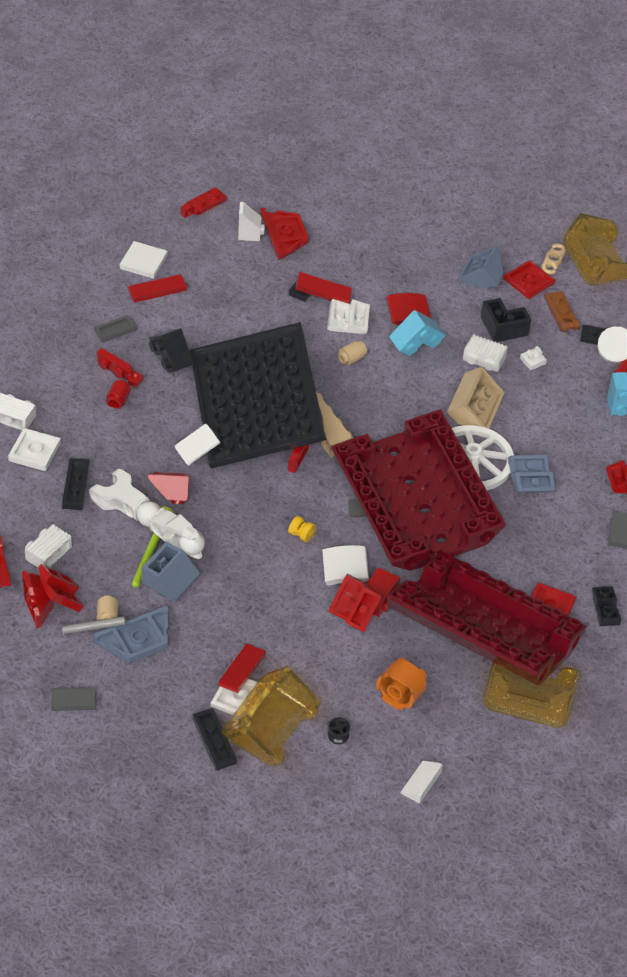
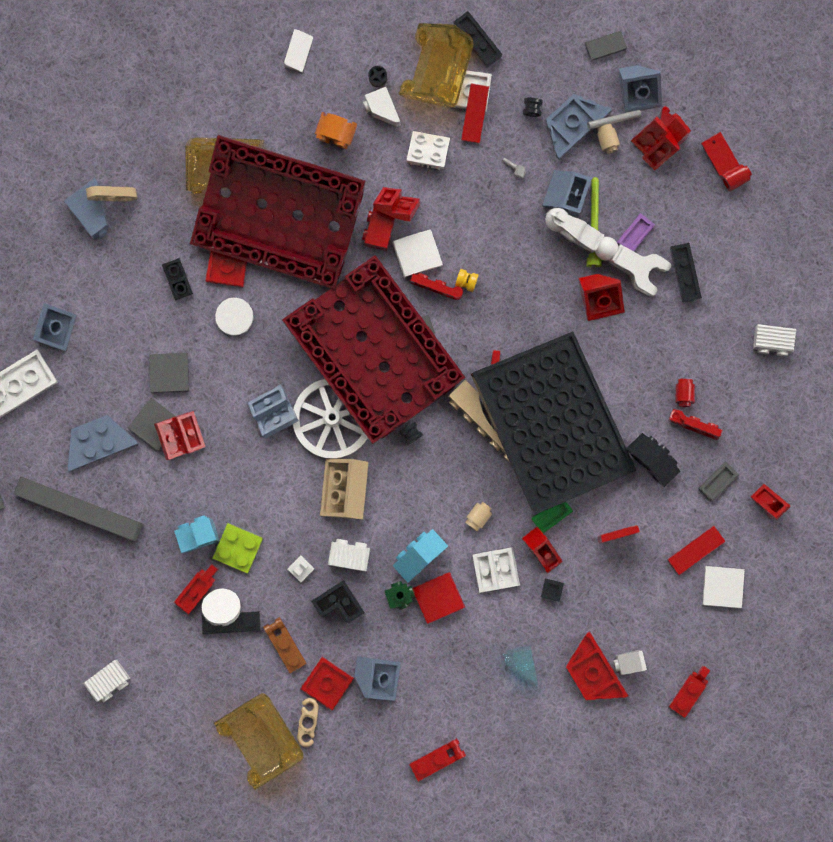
camera: 170 degrees right, 35 degrees up
(34, 449) = (737, 301): white plate -> none
(48, 546) = (684, 190): white brick -> none
(55, 648) = (640, 88): none -> sand blue slope
(74, 296) = (770, 502): none -> red slope
(112, 529) = (636, 232): none -> medium lavender tile
(177, 658) = (532, 107): none -> black wheel
(197, 444) = (589, 347): white slope -> none
(212, 610) = (519, 170): none -> light grey hand
(226, 304) = (618, 534): none -> red tile
(303, 314) = (542, 549): none -> red slope
(305, 649) = (428, 150): none -> white hinge
(322, 288) = (530, 594): red tile -> none
(335, 529) = (437, 286): none -> red plate
(343, 698) = (381, 106): none -> white slope
(347, 249) = (522, 663): none -> clear light blue slope
(396, 423) = (411, 433): none -> black wheel
(443, 211) = (436, 760): none -> red plate
(446, 314) = (391, 595): none -> dark green brick
(552, 561) = (234, 316): none -> white tile
(589, 386) = (237, 548): none -> lime plate

